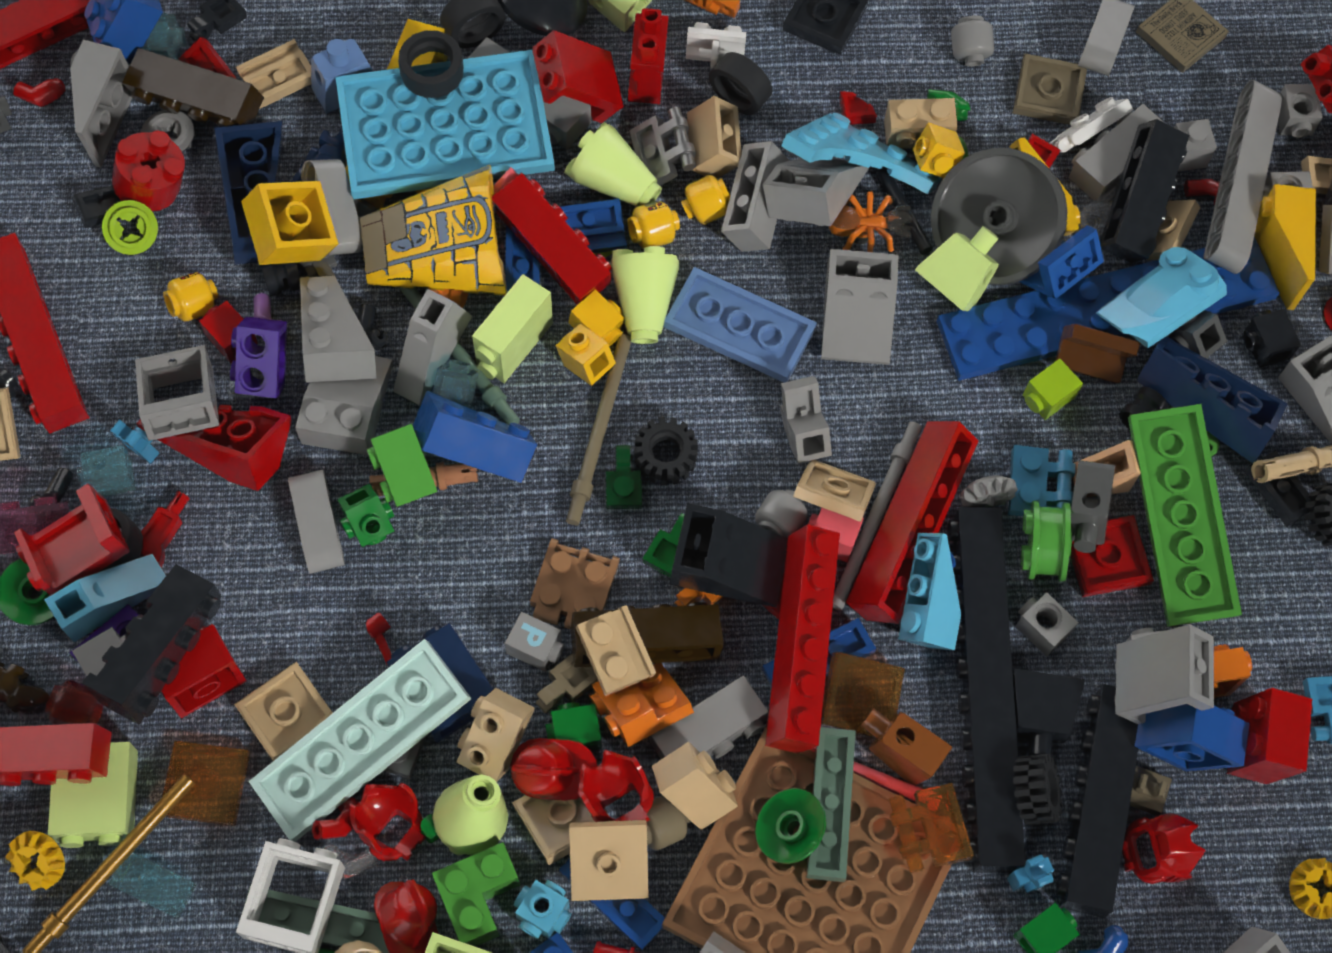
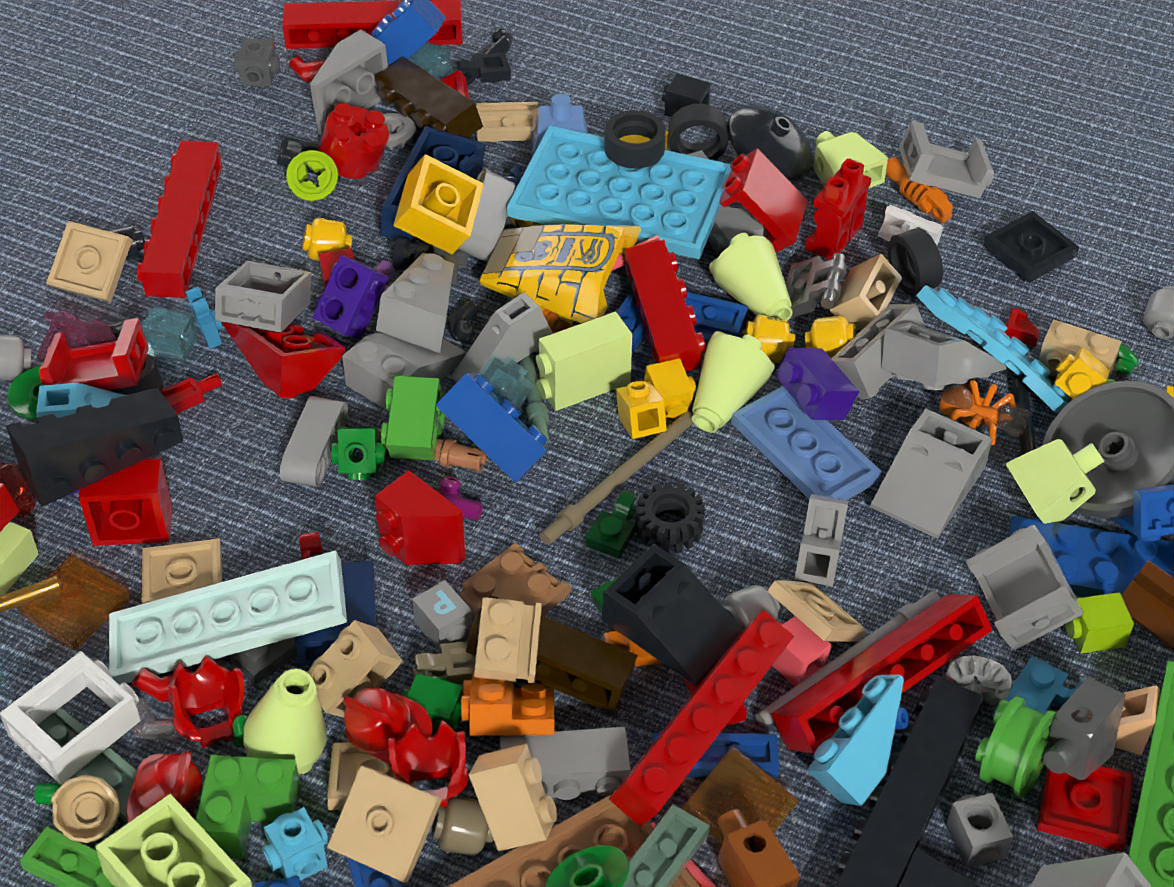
camera: 30 degrees right, 20 degrees down
(466, 567) = (419, 523): none -> red slope
(473, 522) = (450, 490): none -> magenta arm
(723, 259) = (817, 384): none -> dark purple brick
(984, 386) = (1024, 587): none -> light grey panel

